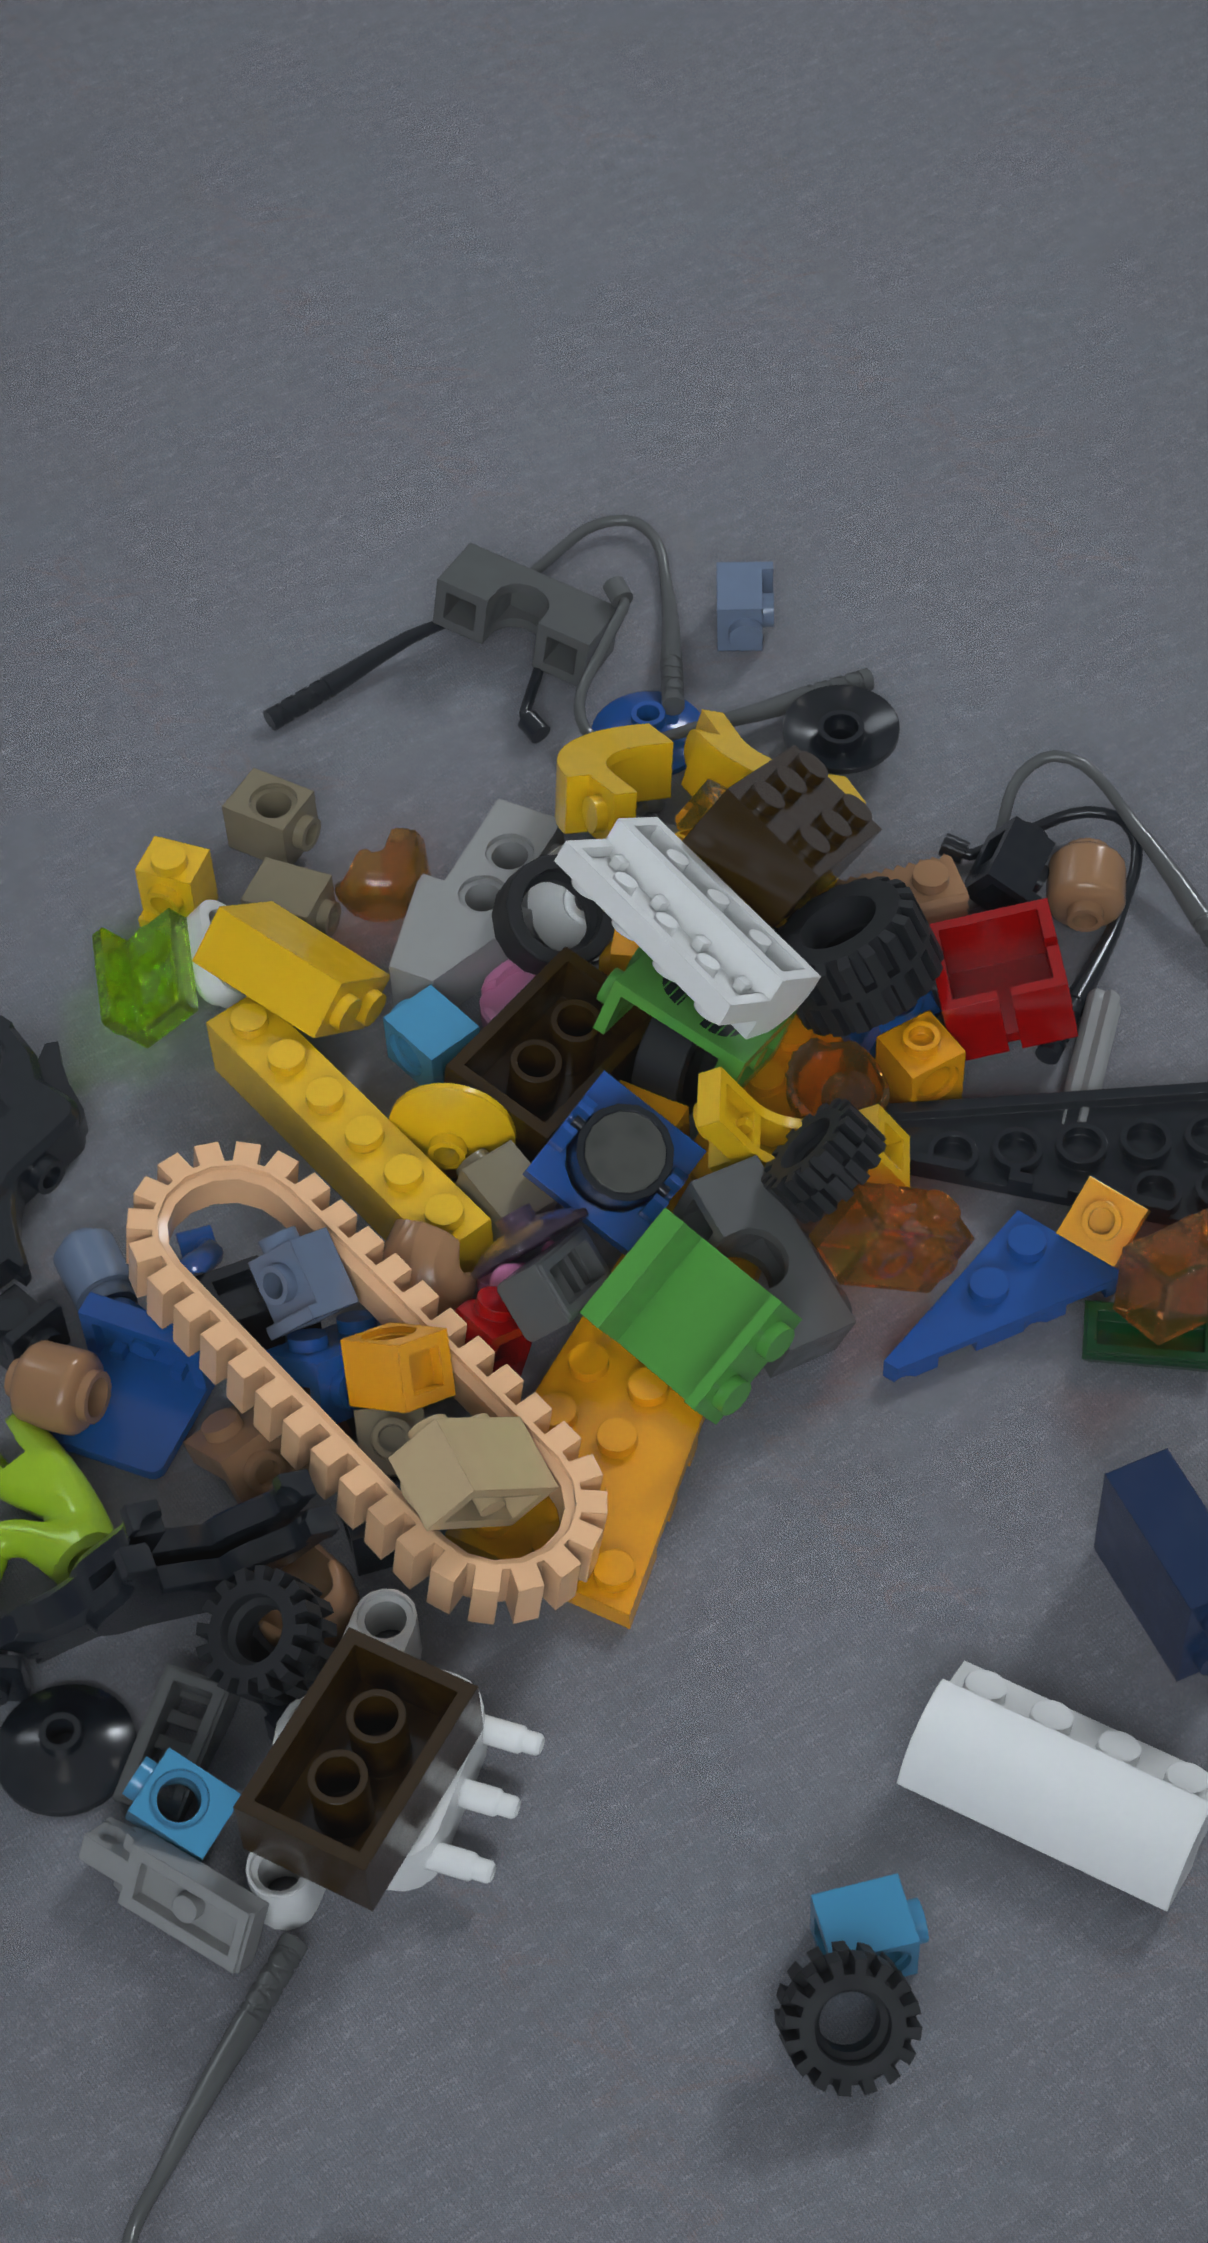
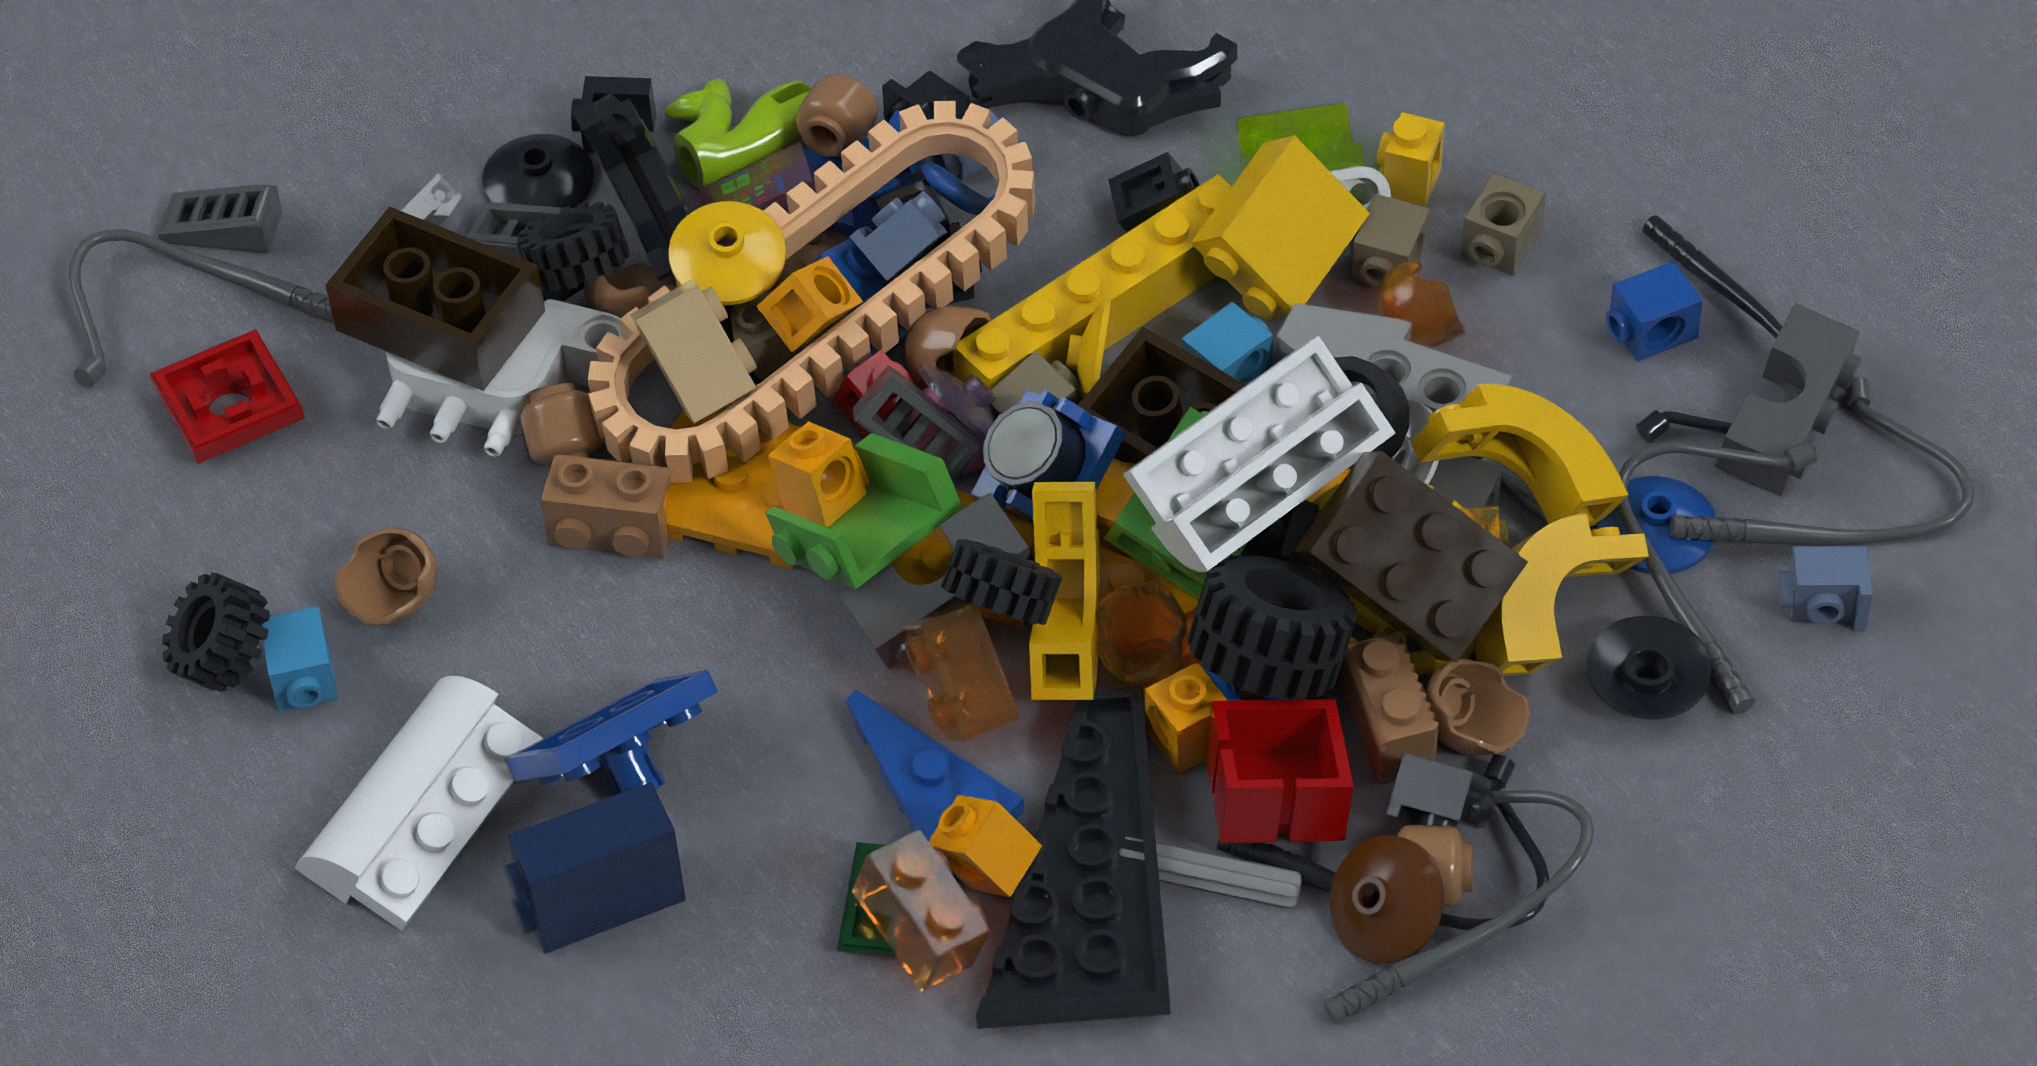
camera: 90 degrees right, 0 degrees up
(112, 2061) = (251, 225): none -> dark grey slope
(169, 1453) = (763, 181): none -> tile
(192, 1106) = (1149, 189): none -> black bracket
(213, 1798) = (461, 210): dark azure brick -> none
(325, 1460) = (734, 271): none -> yellow dish
(398, 710) = (1654, 311): none -> blue brick
(436, 2027) = (231, 367): none -> red piece
(515, 1663) = (559, 424): none -> medium nougat head
(630, 1368) = (817, 474): none -> light orange brick
(637, 1600) = (606, 506): none -> medium nougat bracket
(746, 1837) = (387, 577): none -> medium nougat hair
(900, 842) = (1476, 708): none -> medium nougat hair
(982, 1562) = (616, 735): none -> blue plate
(1107, 918) = (1407, 905): none -> reddish brown dish

